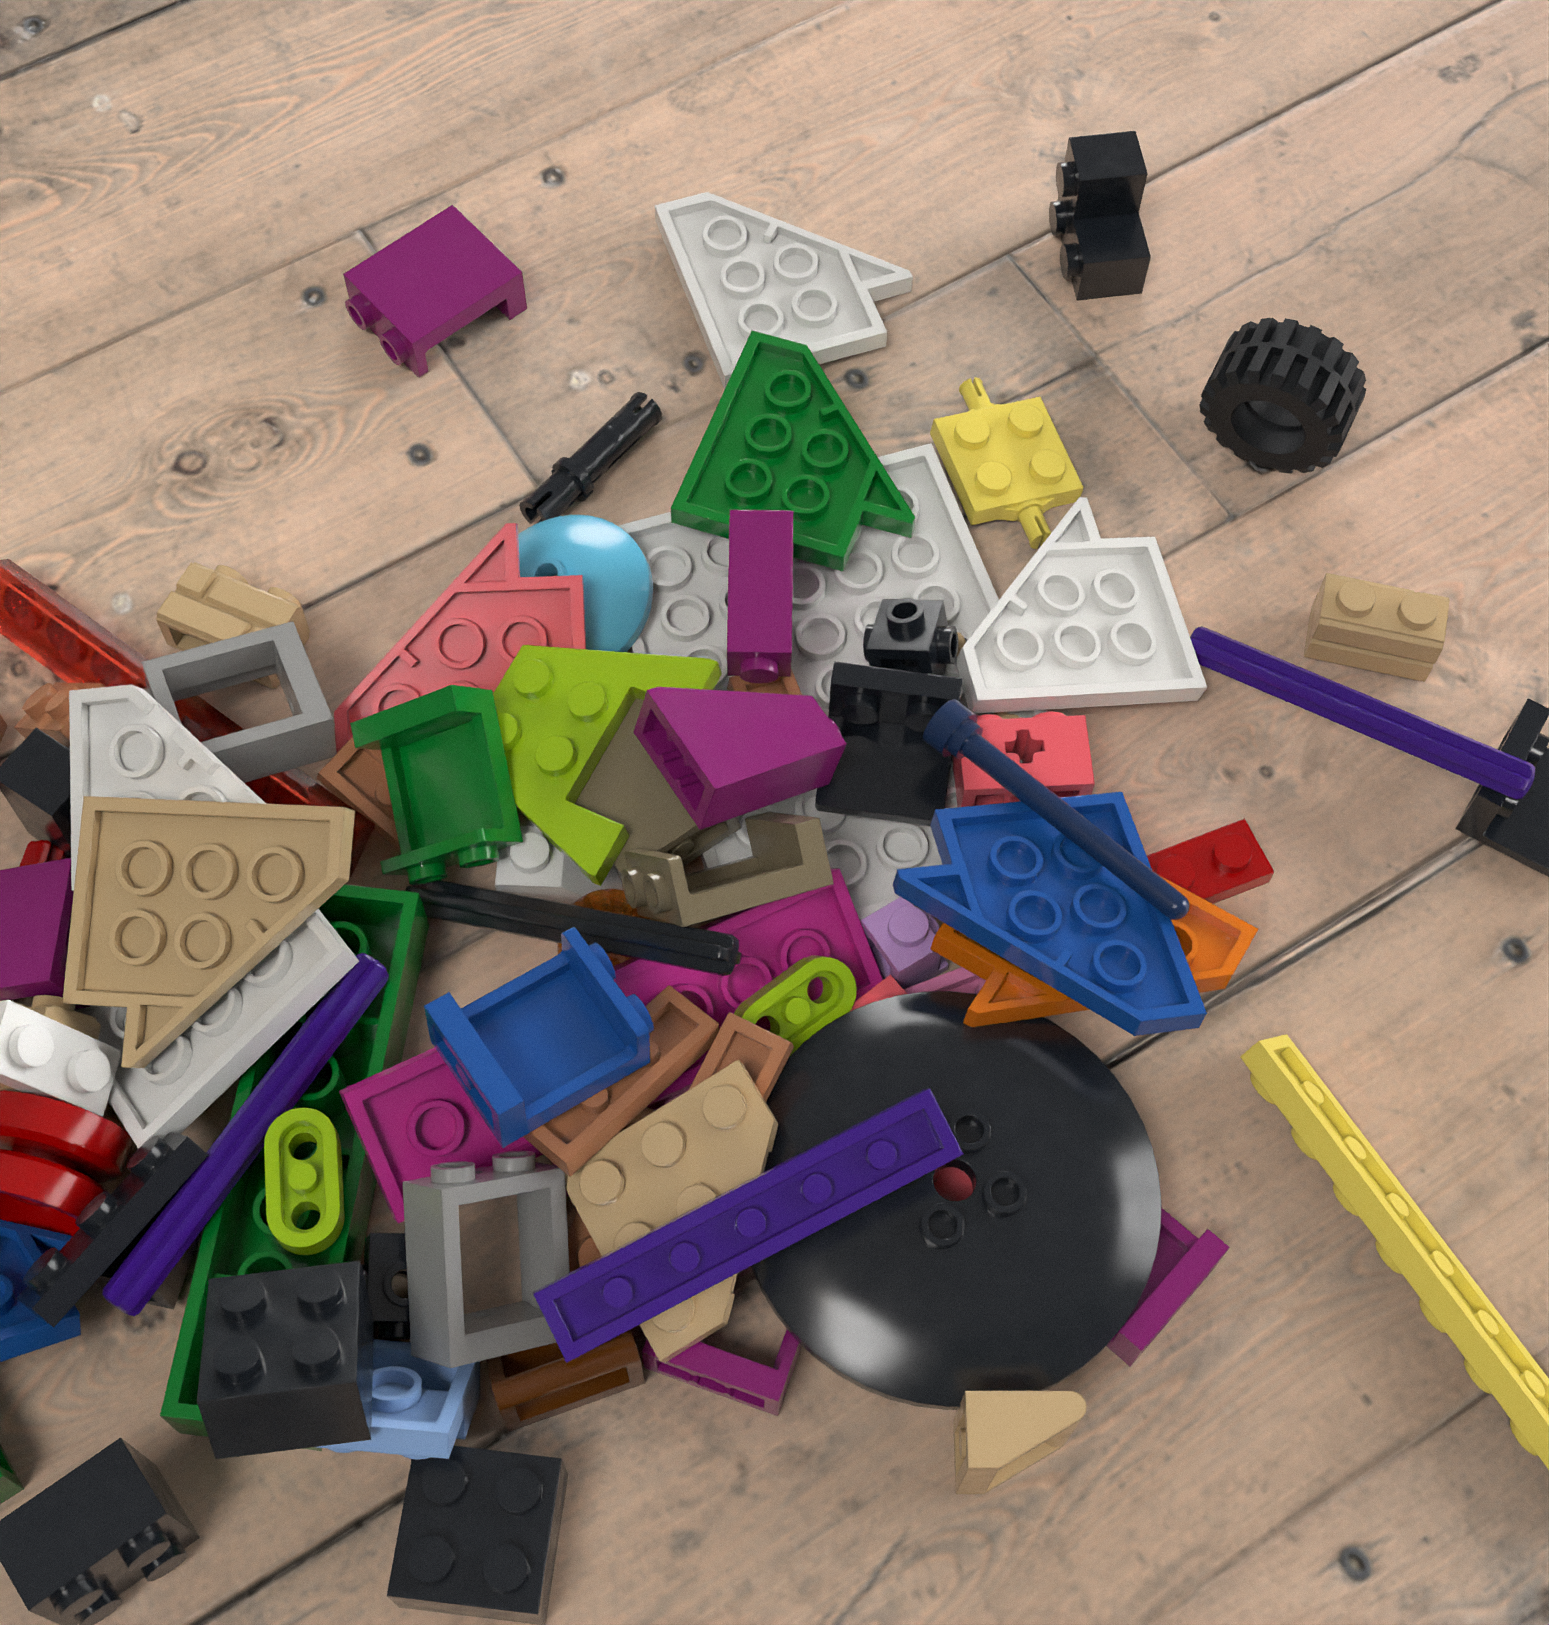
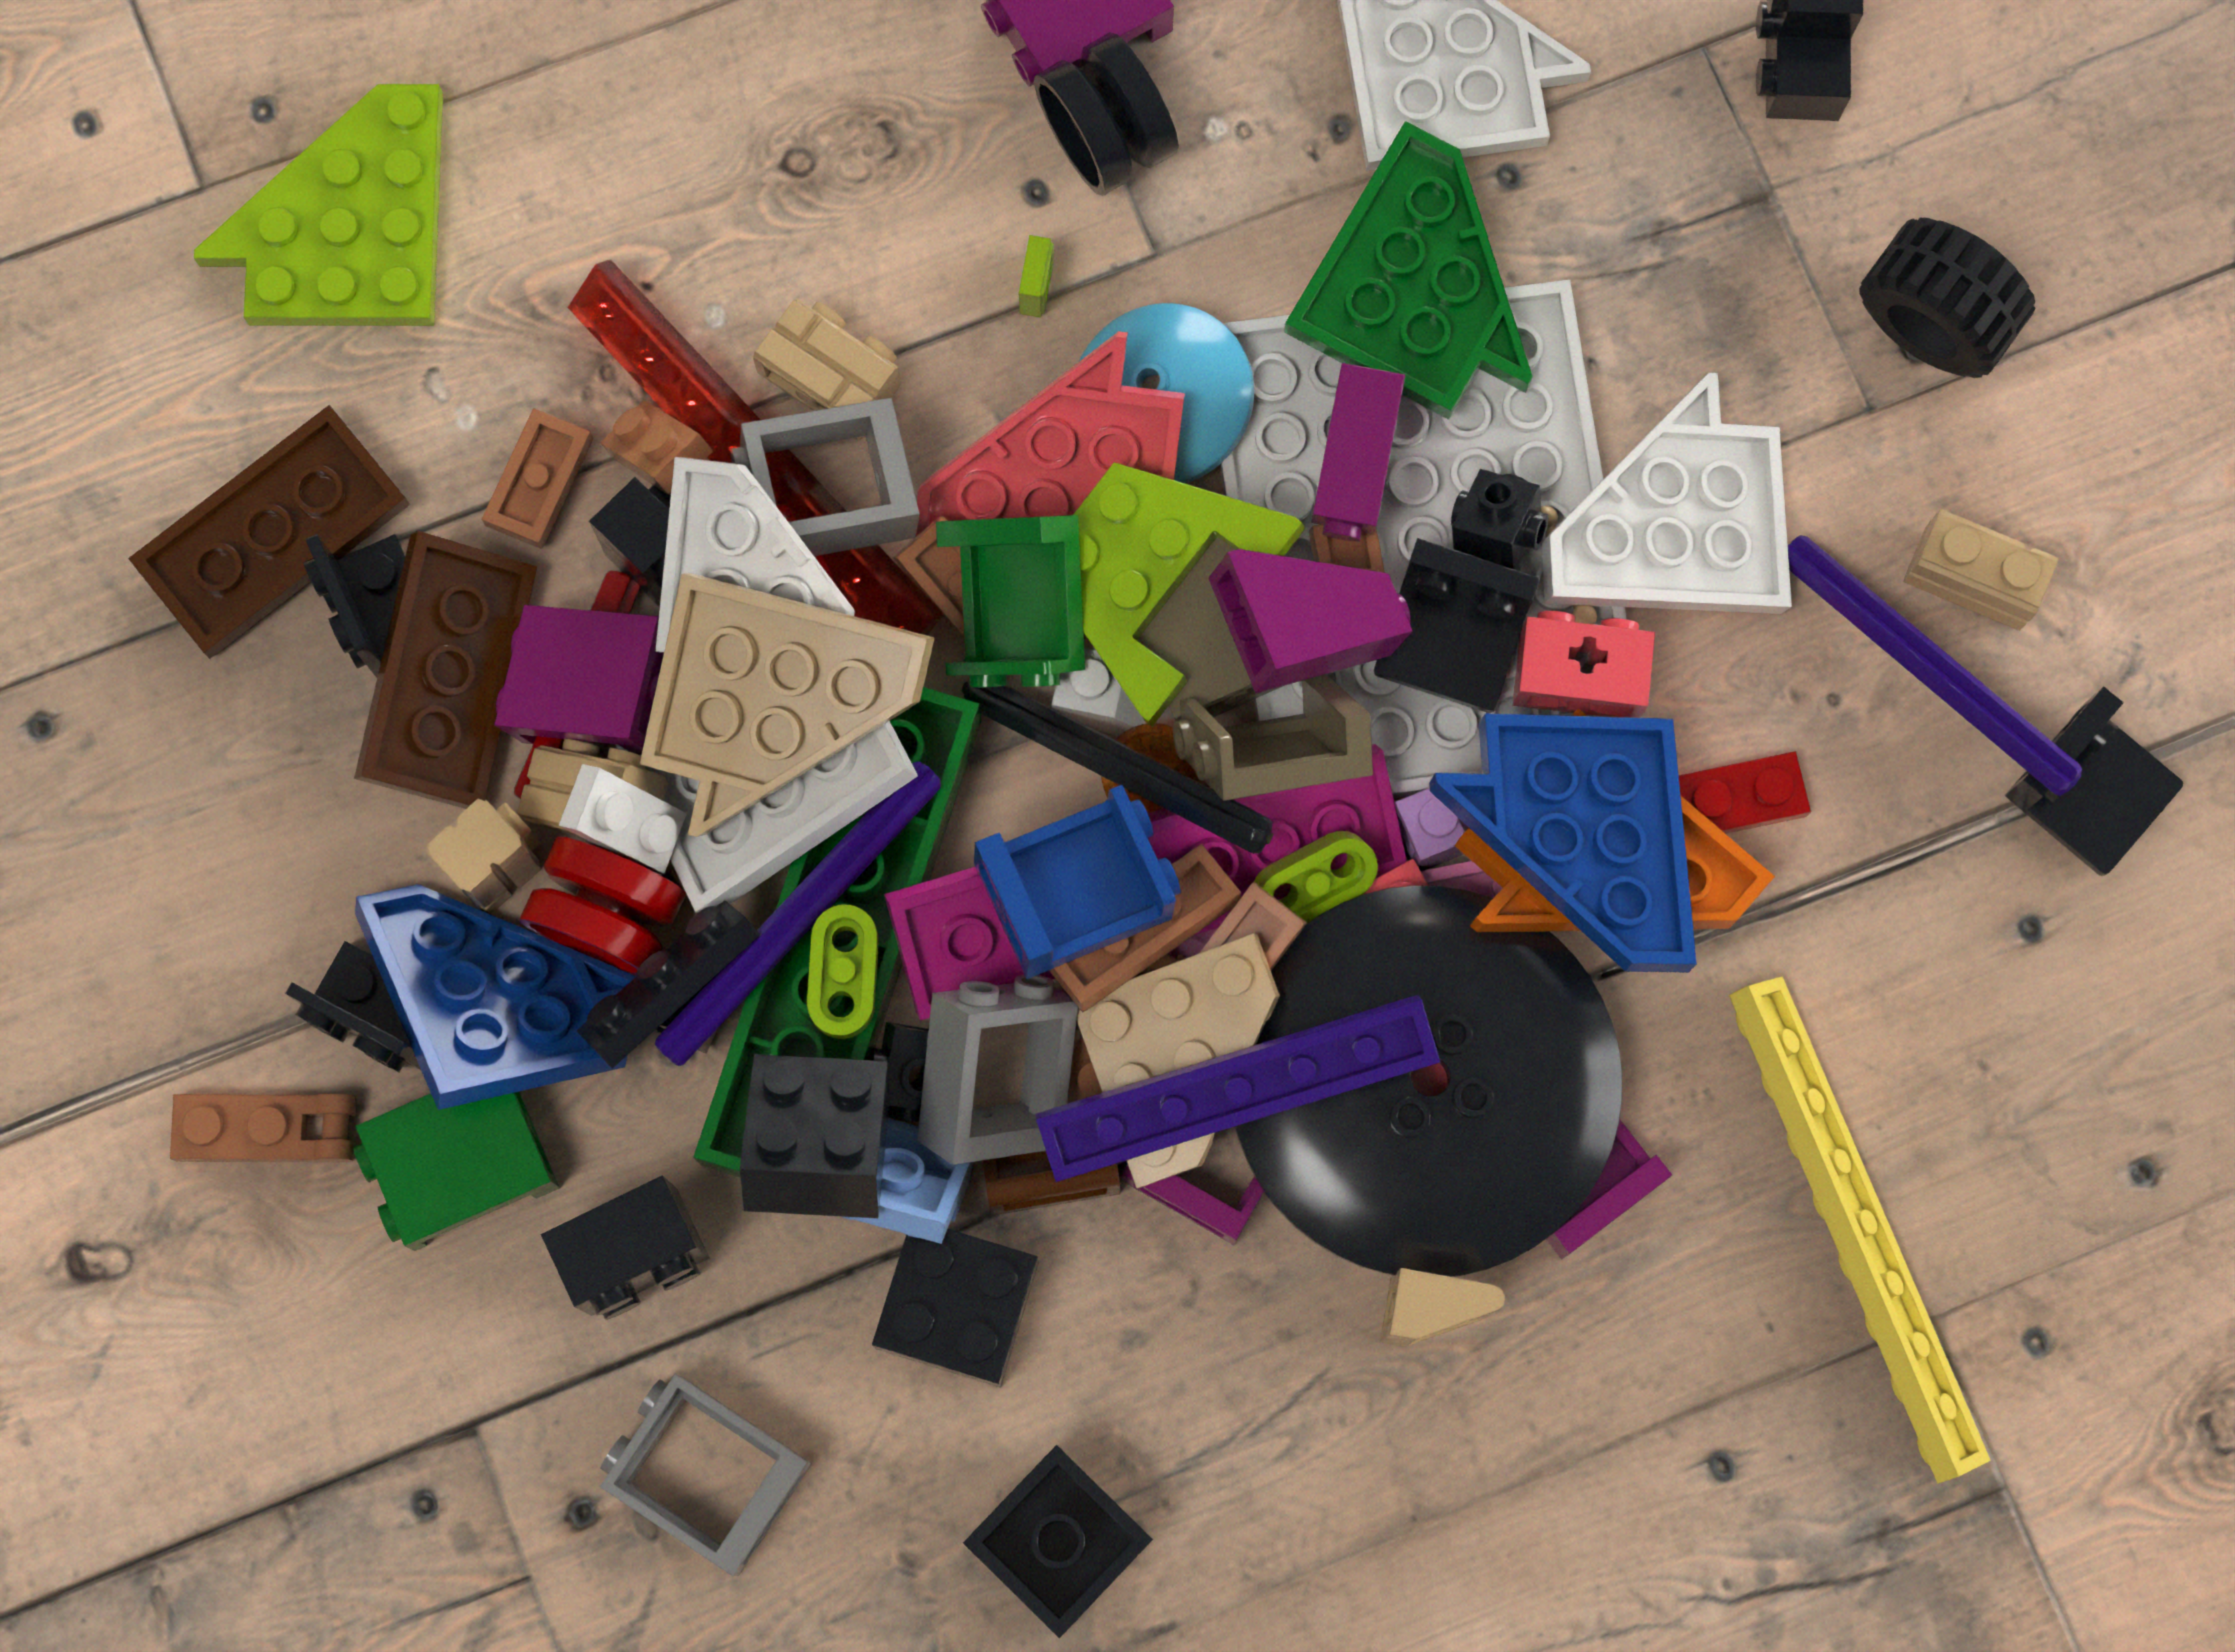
camera: 10 degrees right, 15 degrees up
(427, 515) = (1036, 276): none -> lime tile
(472, 362) = (1106, 113): none -> black wheel
(575, 476) = (1194, 253): black pin -> none
(956, 733) = (1524, 637): dark blue piece -> none
(1006, 461) = (1645, 307): light yellow plate -> none

